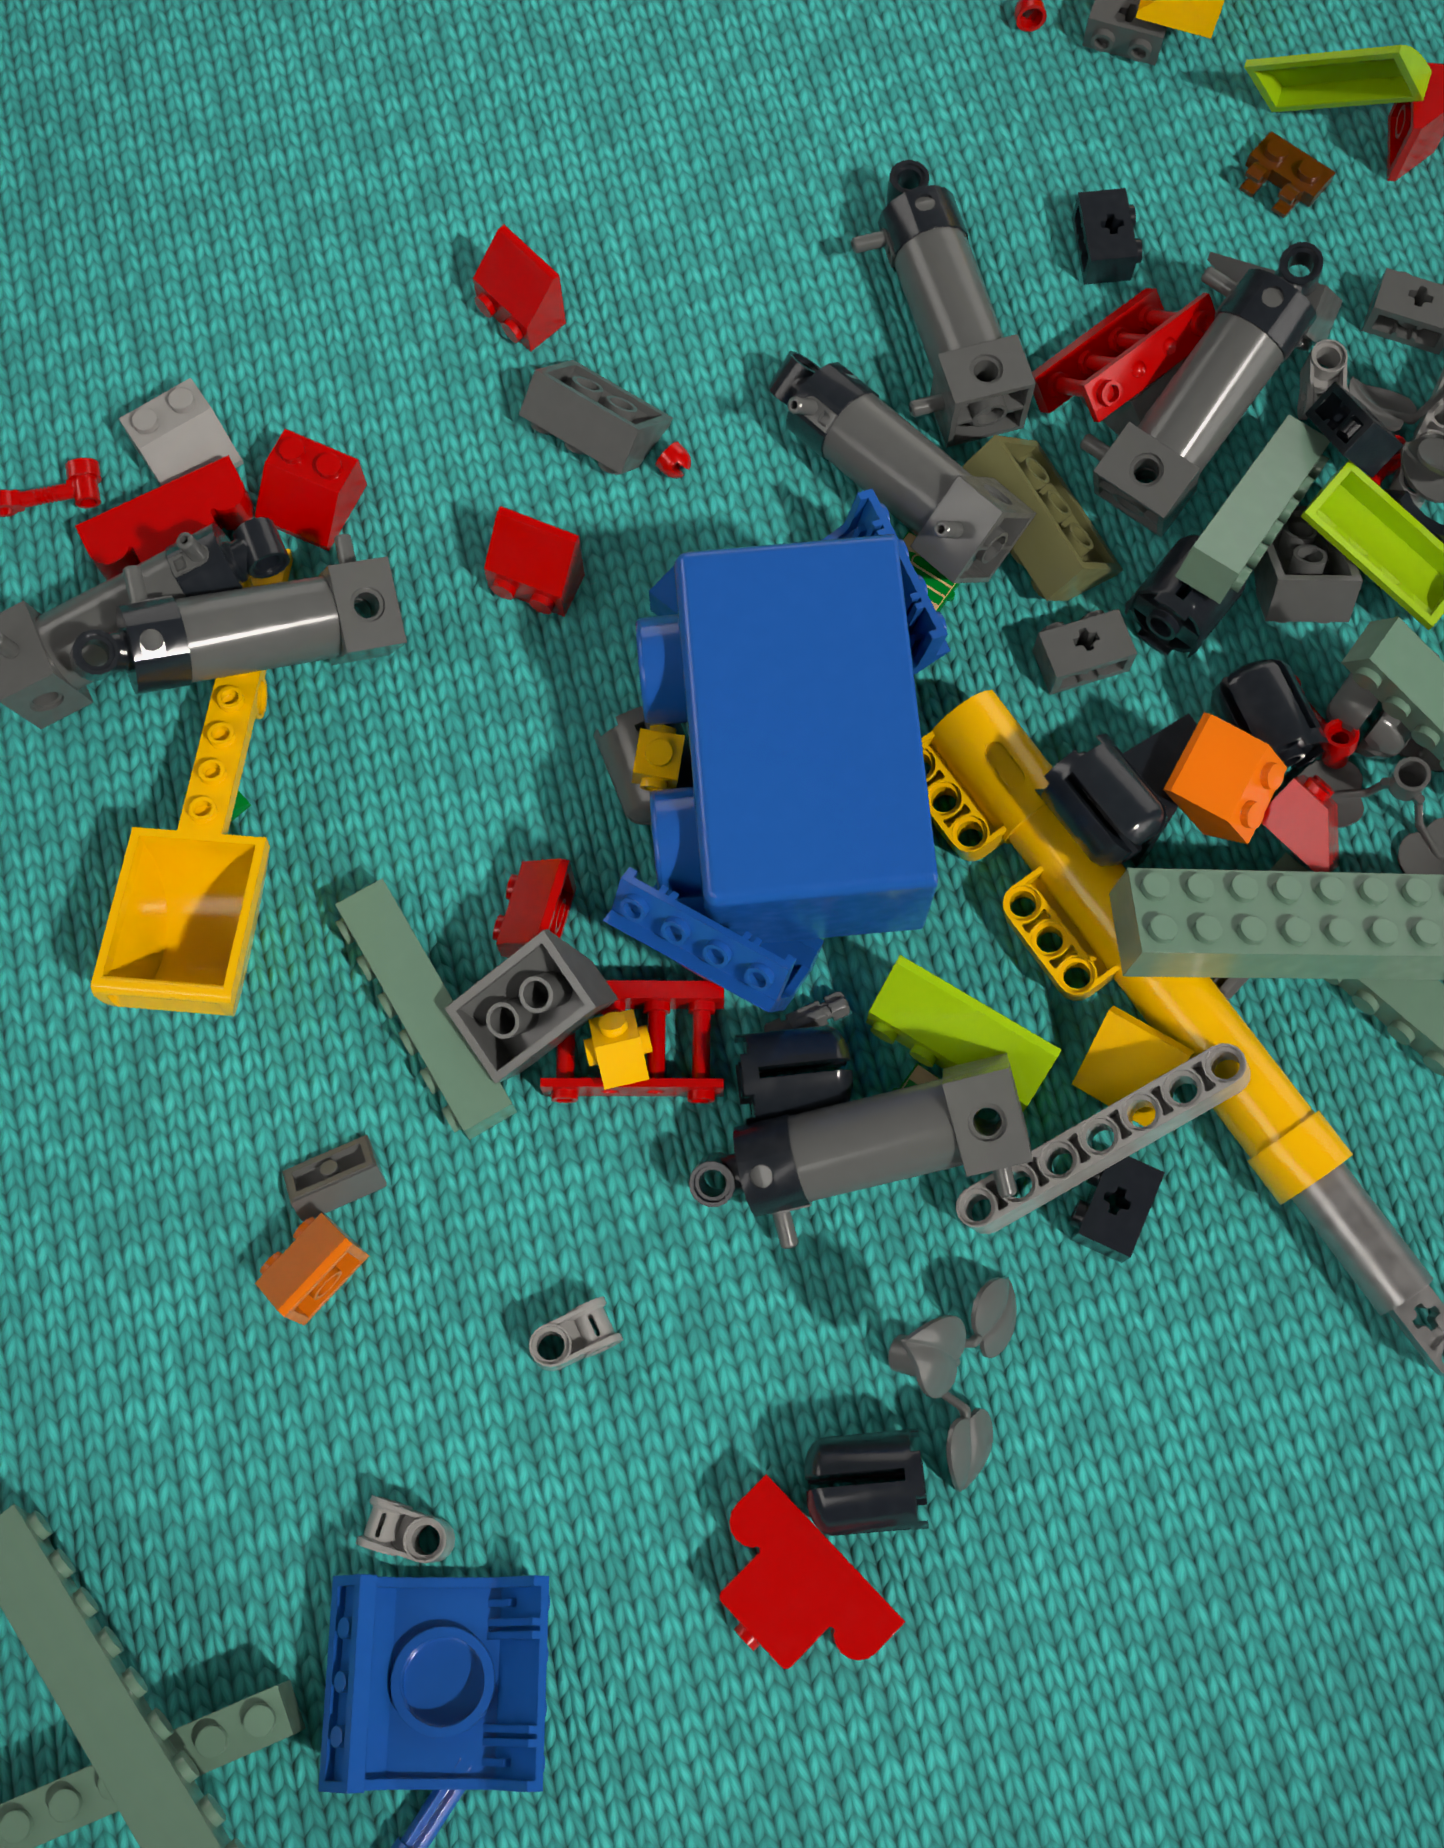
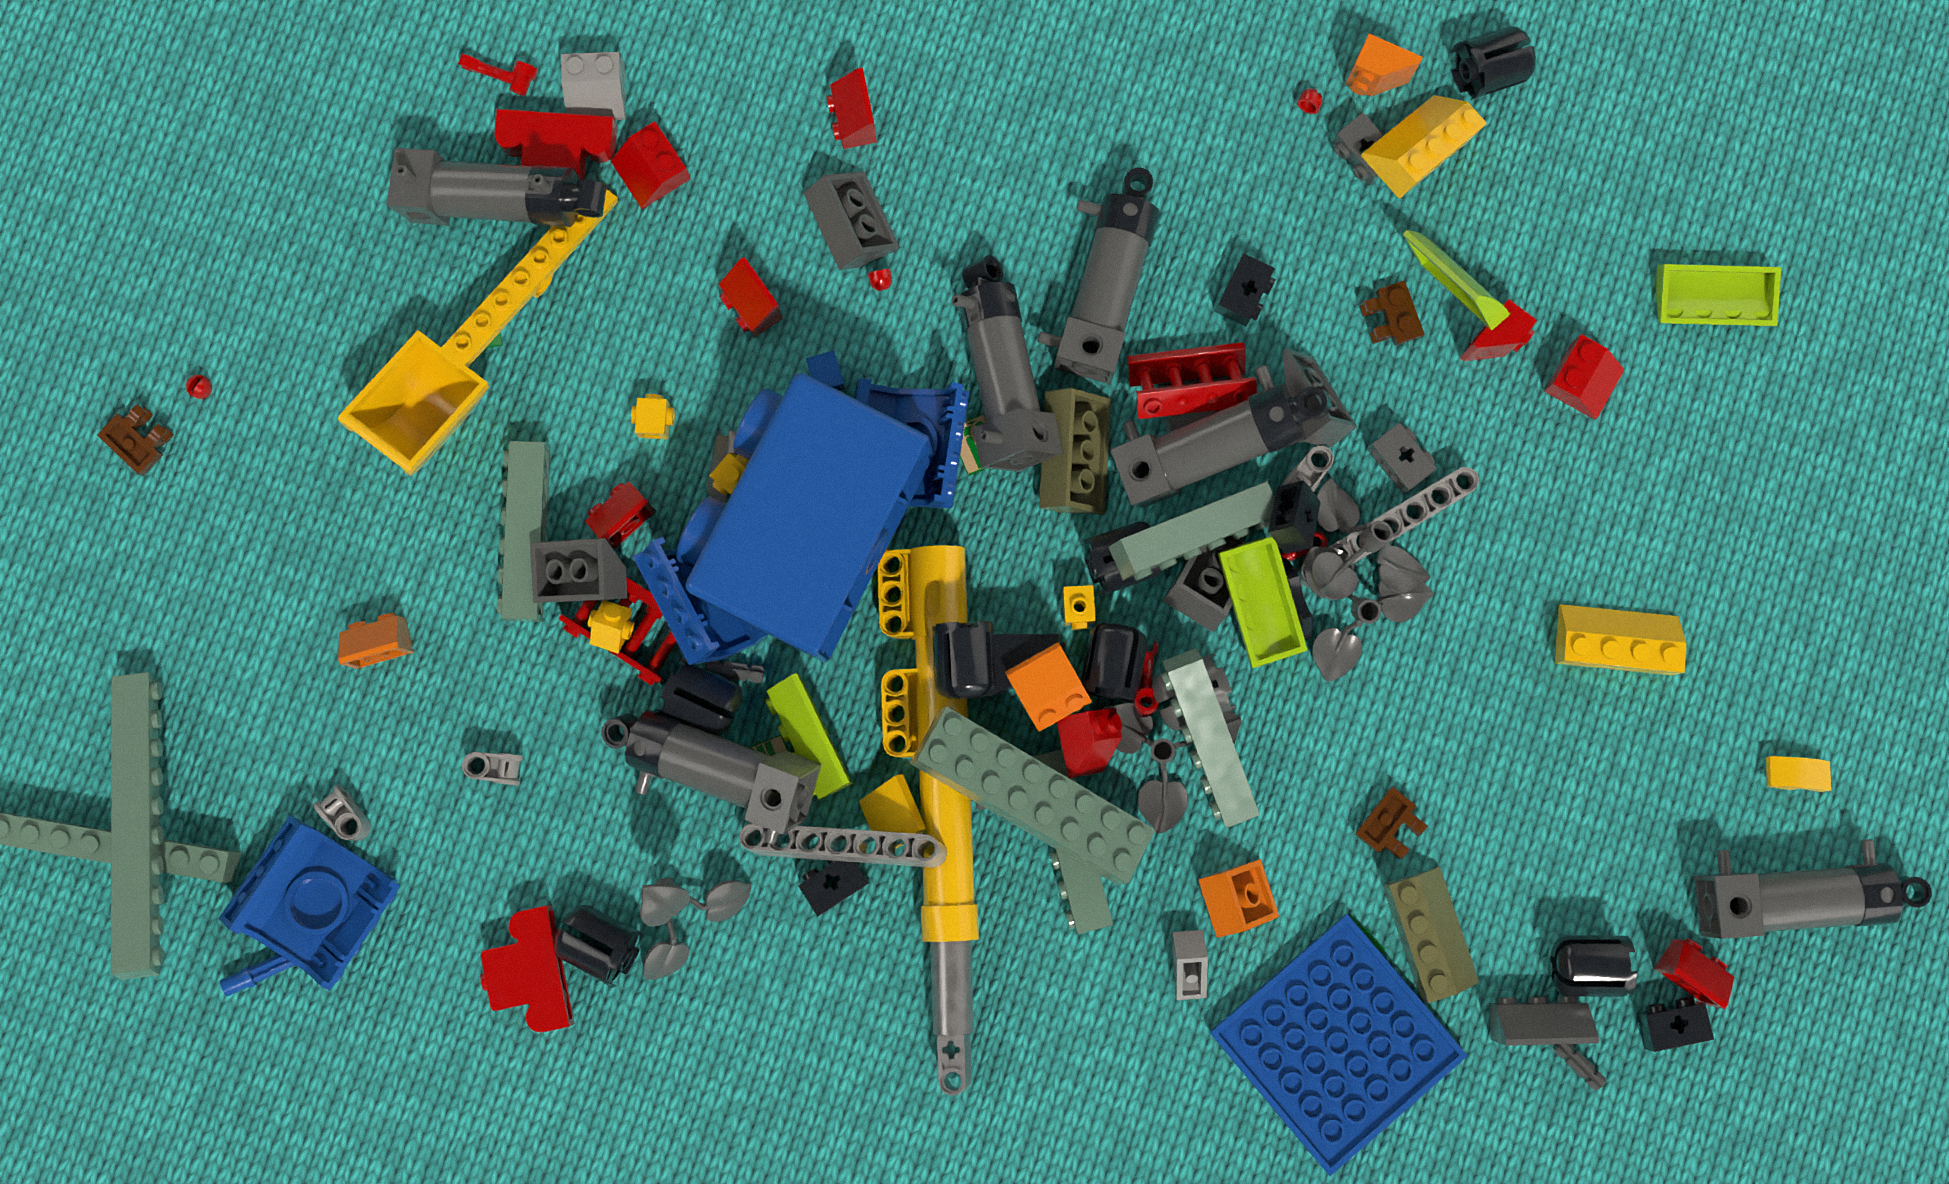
camera: 30 degrees right, 10 degrees up
(251, 628) = (552, 248): dark grey piece -> none
(334, 1178) = (419, 597): dark grey slope -> none
(500, 774) = (652, 417): none -> yellow brick
(1064, 652) = (1052, 563): dark grey brick -> none
(1174, 683) = (1078, 596): none -> yellow brick

